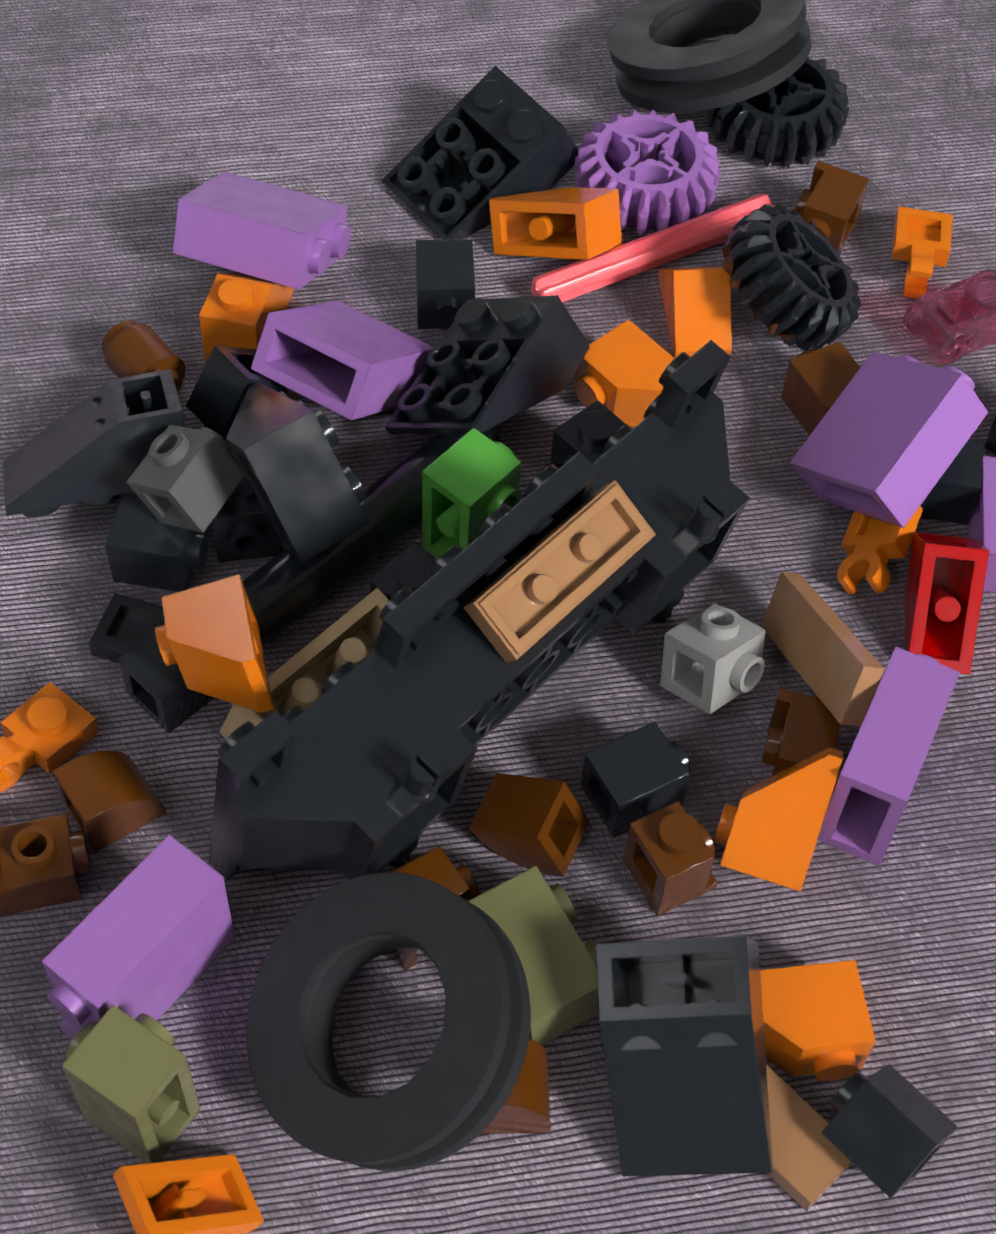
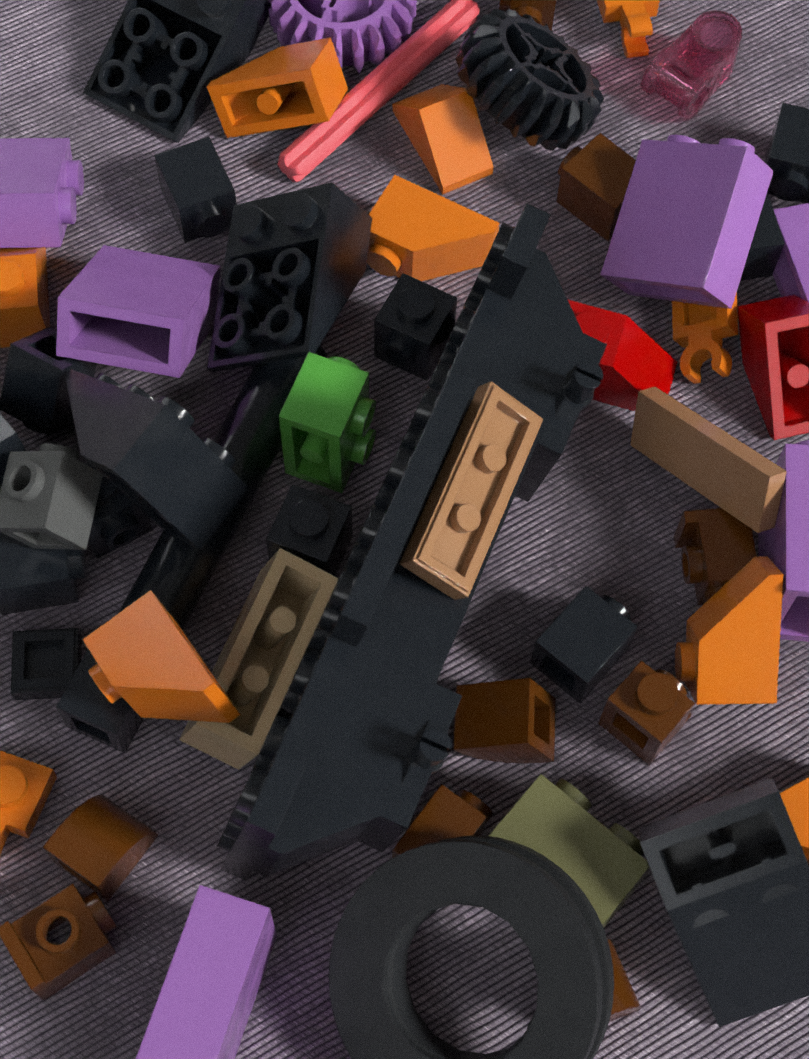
camera: 20 degrees left, 10 degrees up
(712, 658) = (609, 499): light grey brick -> none
(774, 538) = (630, 358): none -> red slope

